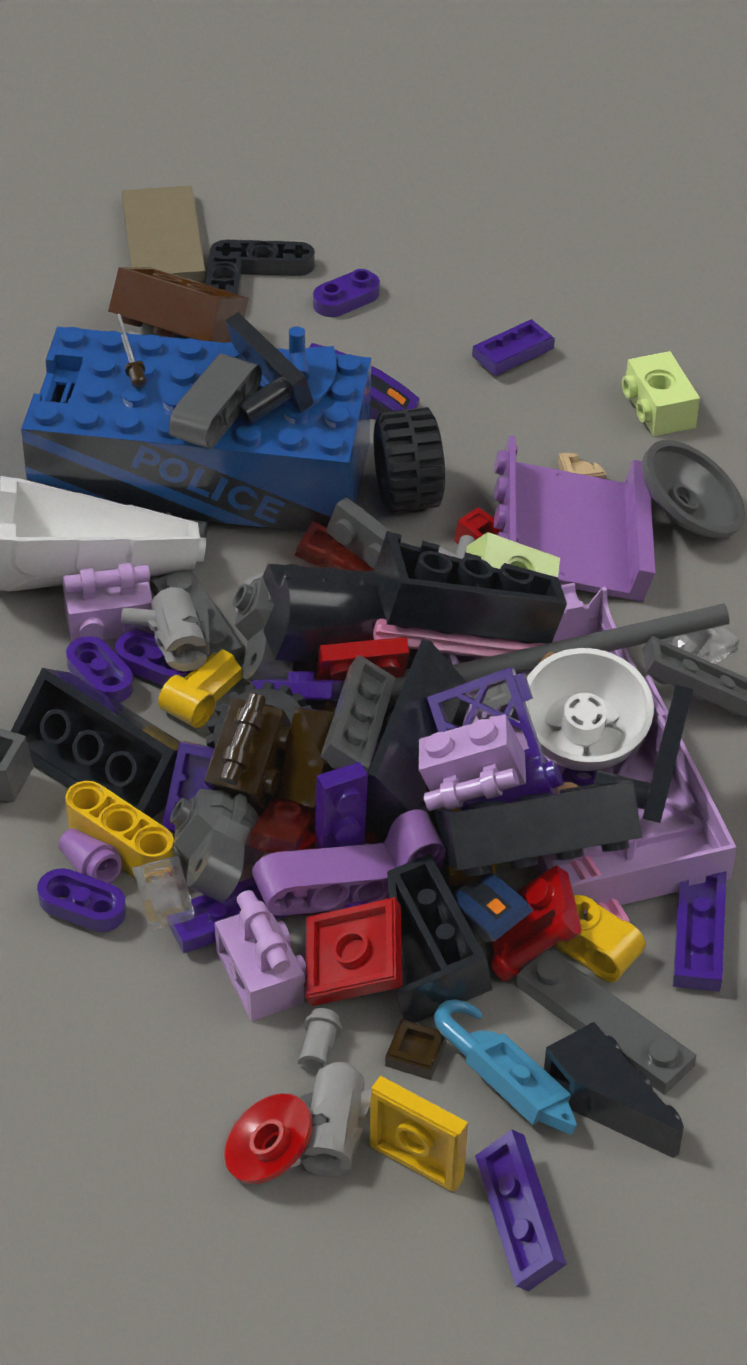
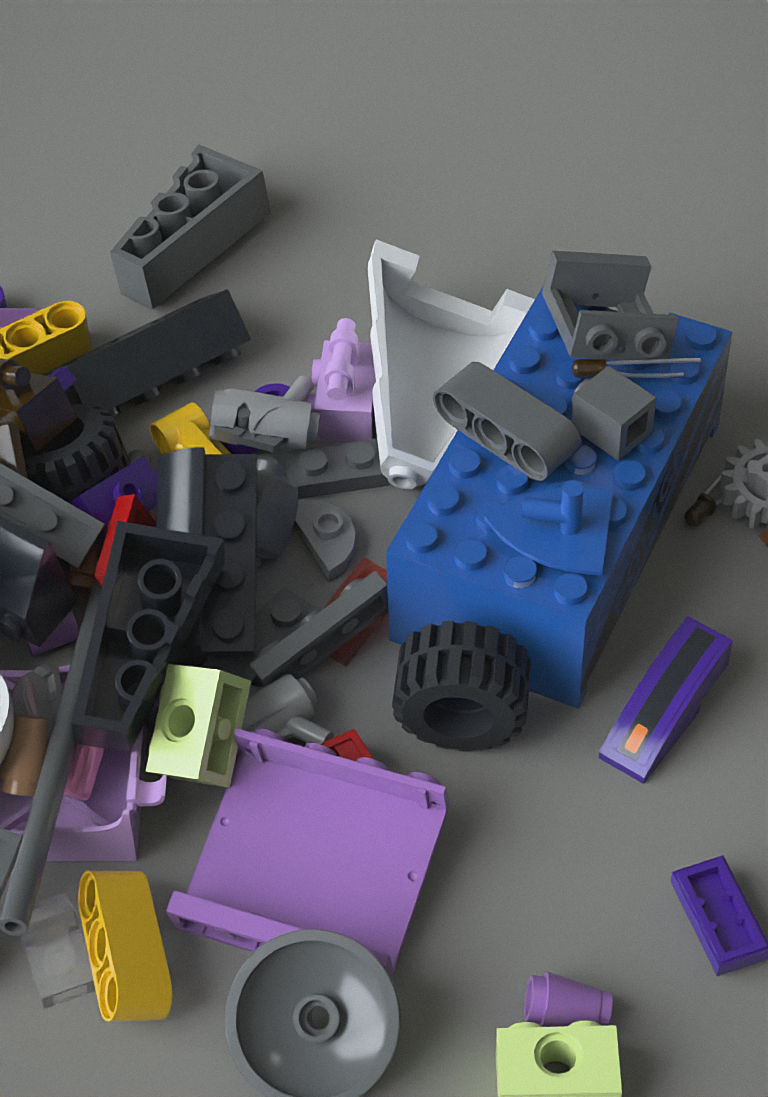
camera: 110 degrees right, 5 degrees up
(46, 375) = (606, 282): none -> dark grey panel
(105, 668) = (261, 367): dark purple plate -> none
(189, 347) = (613, 412): none -> dark grey brick
(285, 379) = (502, 484): black piece -> none
(570, 463) = (440, 926): tan tile -> none
(612, 402) = (562, 1001): none -> medium lavender cone
(687, 591) = (124, 946): none -> yellow beam

